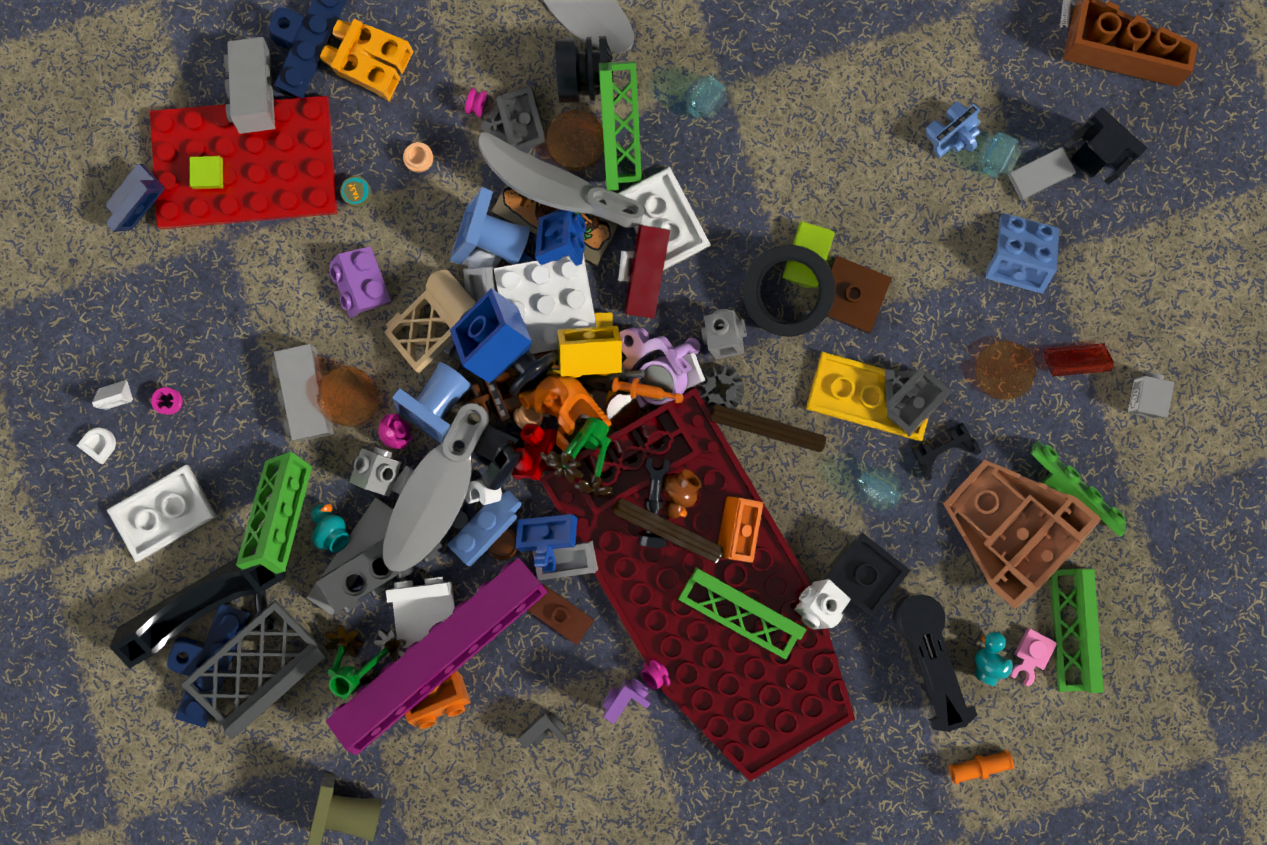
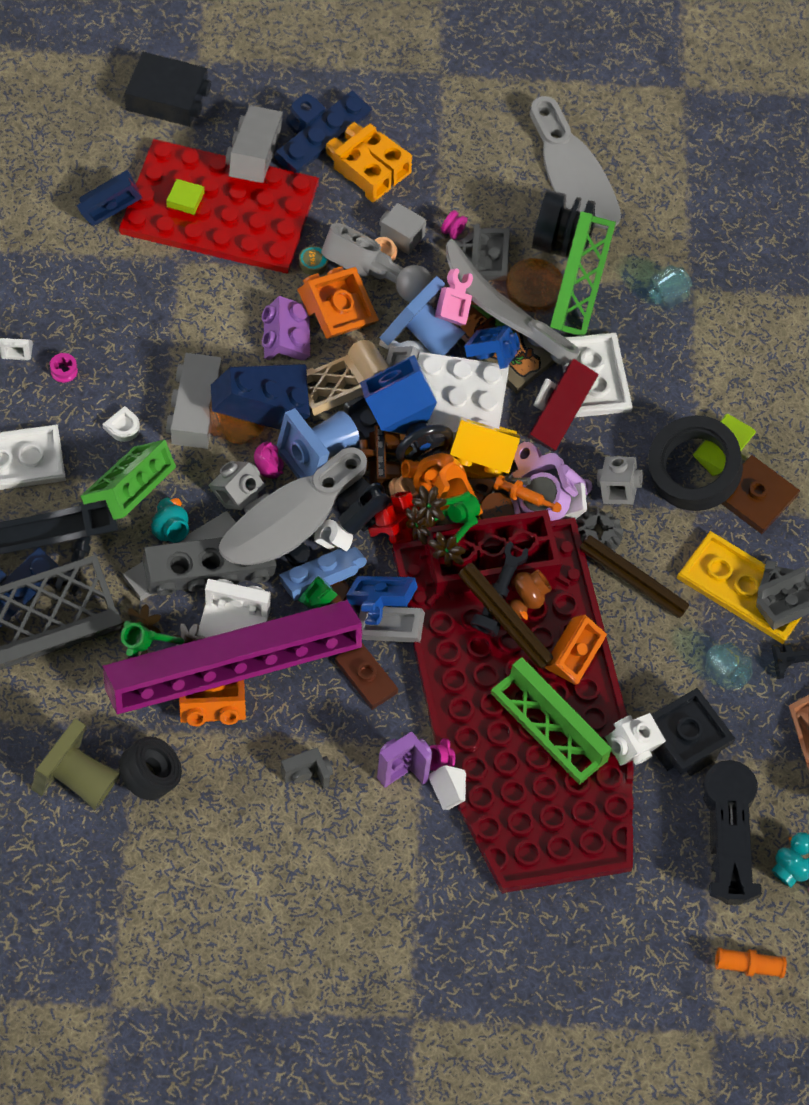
camera: 15 degrees right, 25 degrees down
(139, 47) = (167, 89): none -> black brick
(246, 440) = (123, 425): none -> white tile
(366, 373) = (261, 393): none -> dark blue wedge
(396, 236) = (338, 301): none -> orange plate
(401, 177) = (357, 250): none -> light grey beam
(422, 784) = (138, 776): none -> black tyre
(427, 125) = (403, 227): none -> light grey brick
(490, 557) = (318, 594): none -> green tile
(509, 208) = (453, 301): none -> bright pink plate
(672, 701) = (449, 786): none -> white slope

